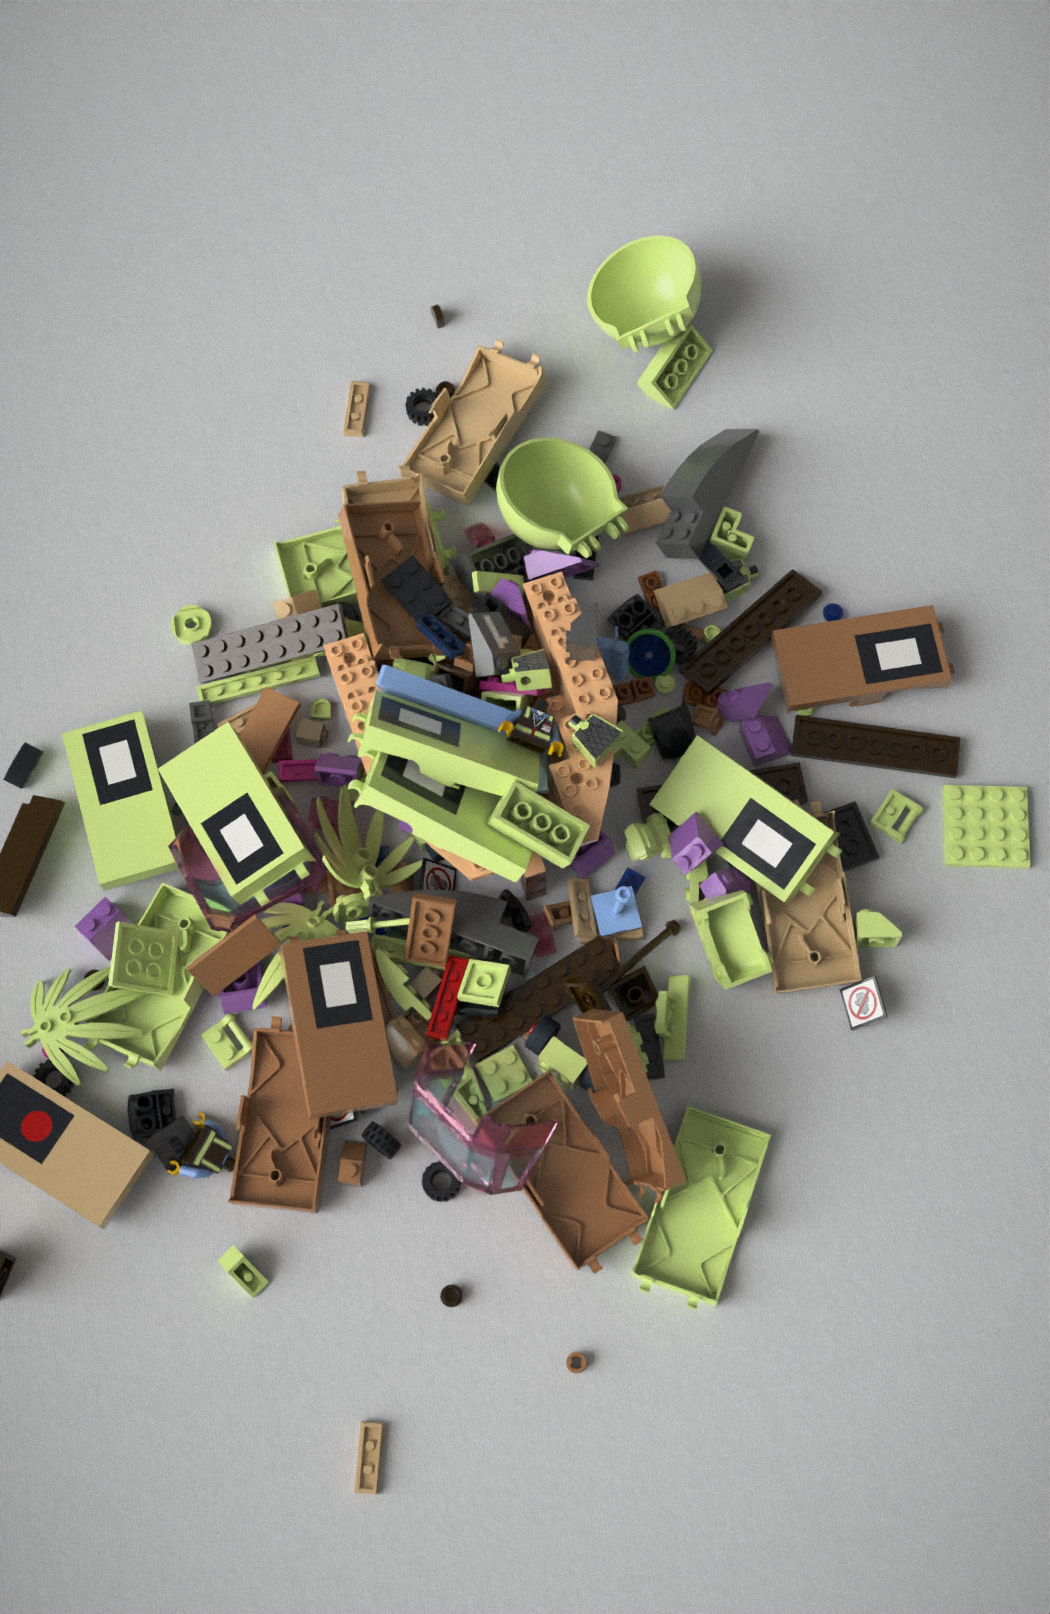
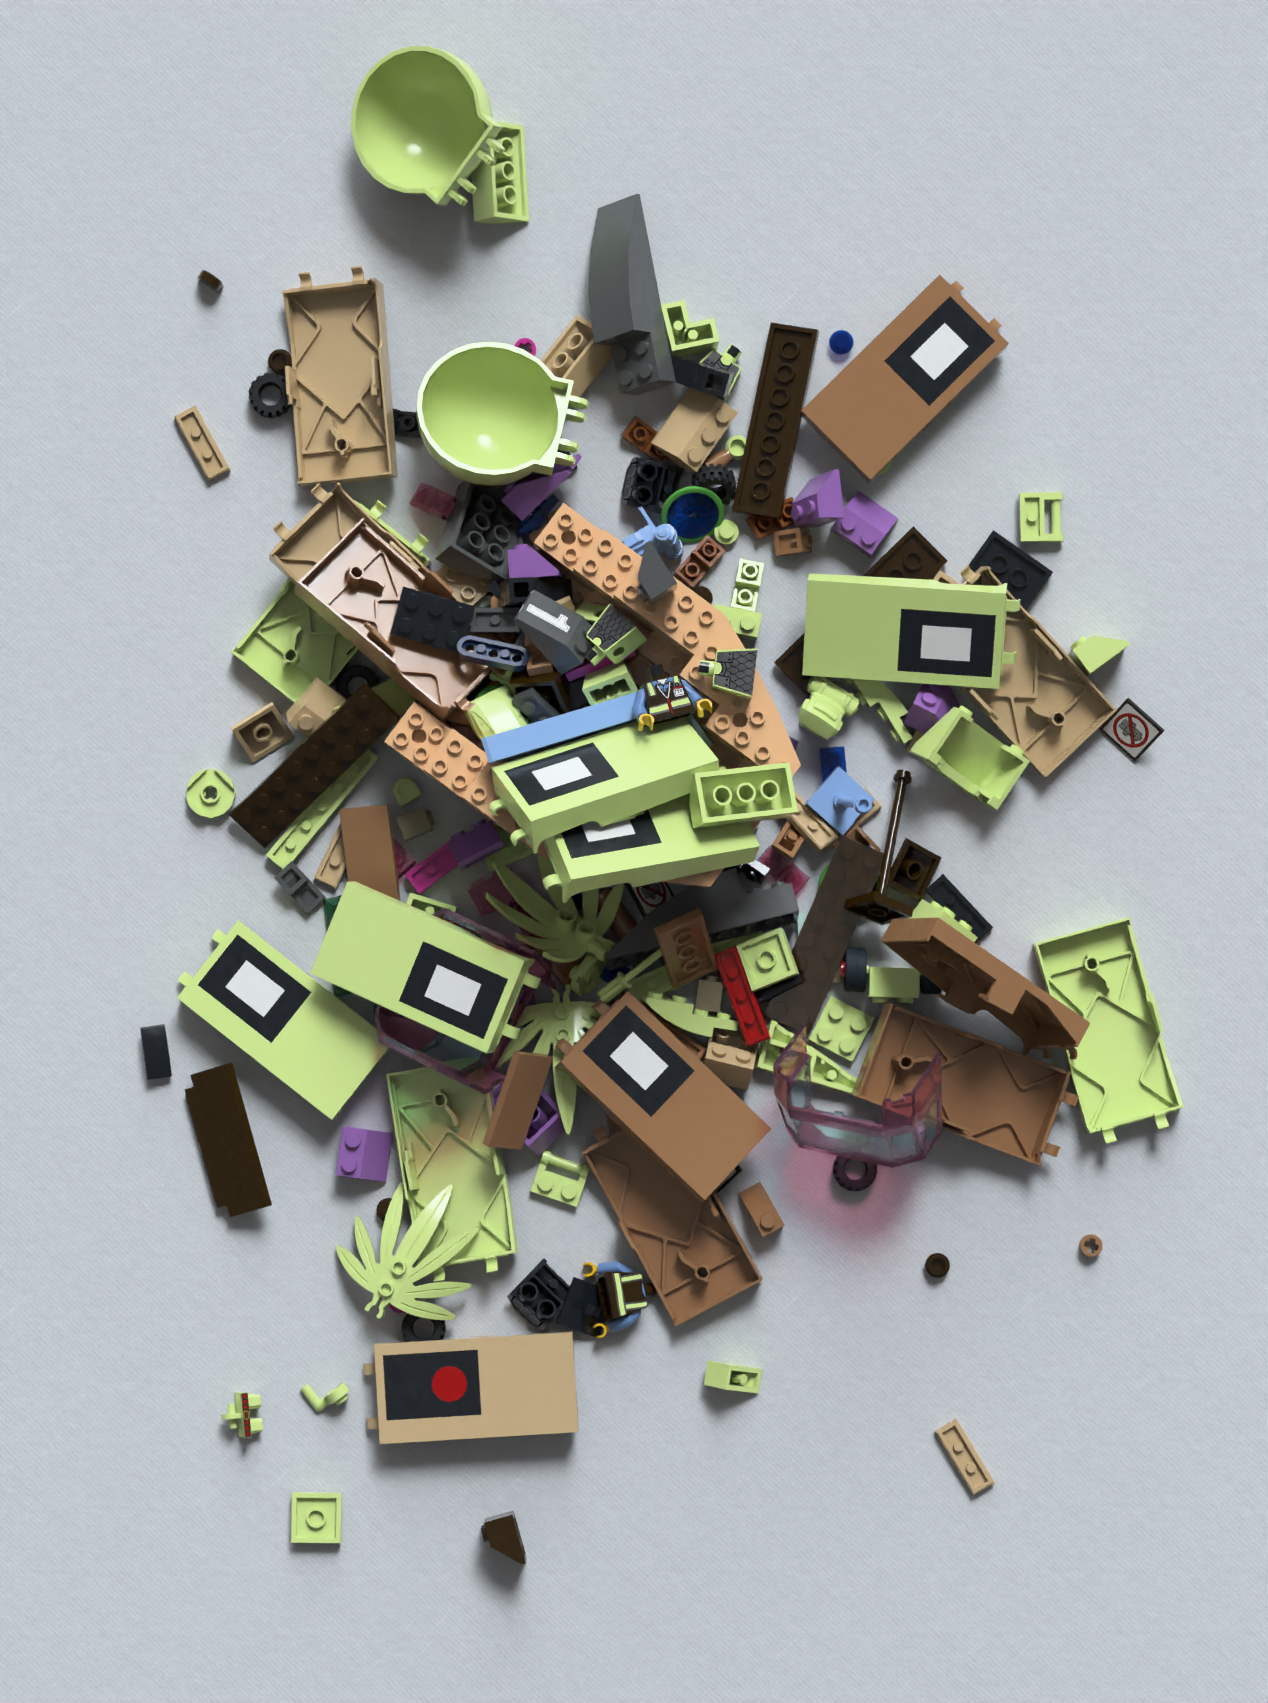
camera: 40 degrees left, 15 degrees up
(143, 959) = (430, 1161): yellowish green plate -> none
(254, 605) = (262, 732): none -> tan slope
(381, 1140) = (774, 1171): black tyre -> none
(487, 581) = (495, 552): yellowish green tile -> none
(603, 445) = (486, 319): dark grey plate -> none
(672, 732) = (773, 581): black slope -> none
(672, 1017) = (962, 865): yellowish green bracket -> none
(693, 843) = (873, 689): medium lavender slope -> none
(875, 746) = (975, 458): dark brown plate -> none
(986, 826) = (1132, 468): yellowish green plate -> none

